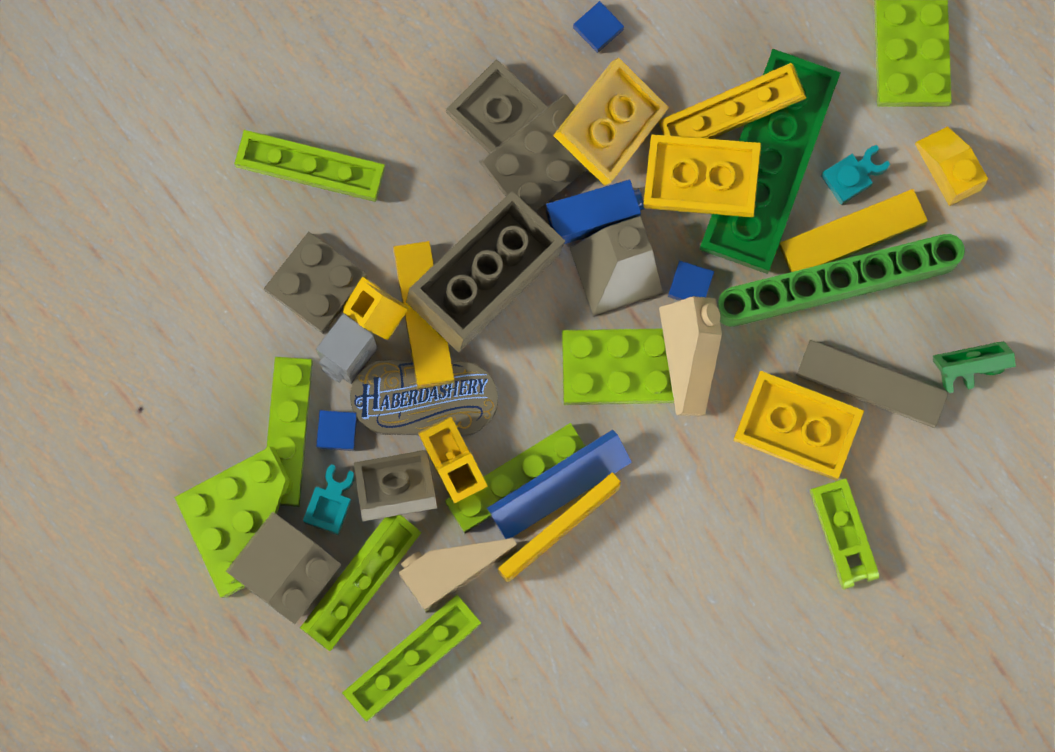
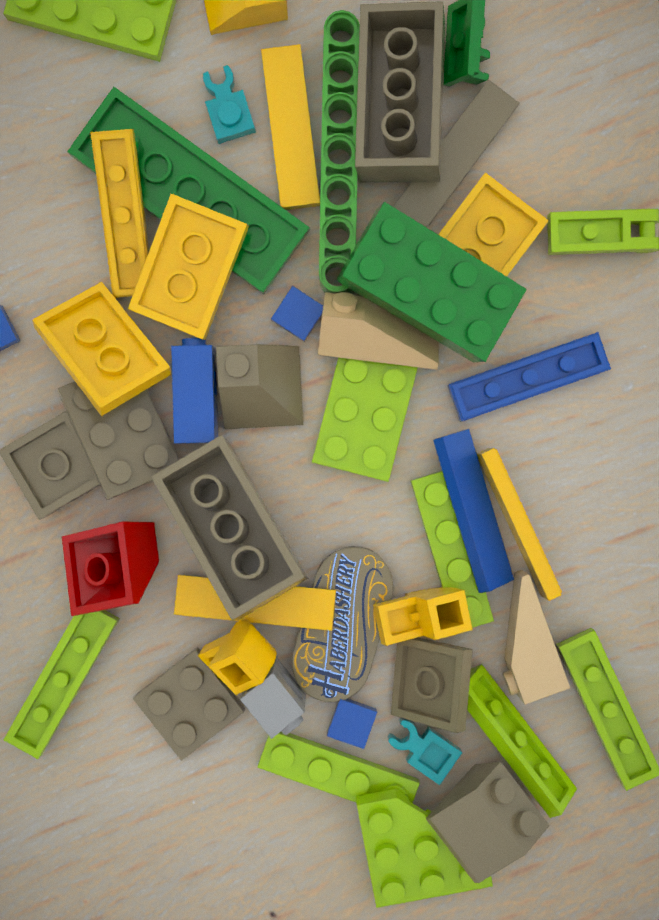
camera: 80 degrees left, 10 degrees up
(424, 178) = (109, 565): none -> red slope
(694, 504) = (529, 377): none -> blue tile
(747, 382) = (431, 284): none -> green brick
(907, 315) = (400, 92): none -> dark tan brick

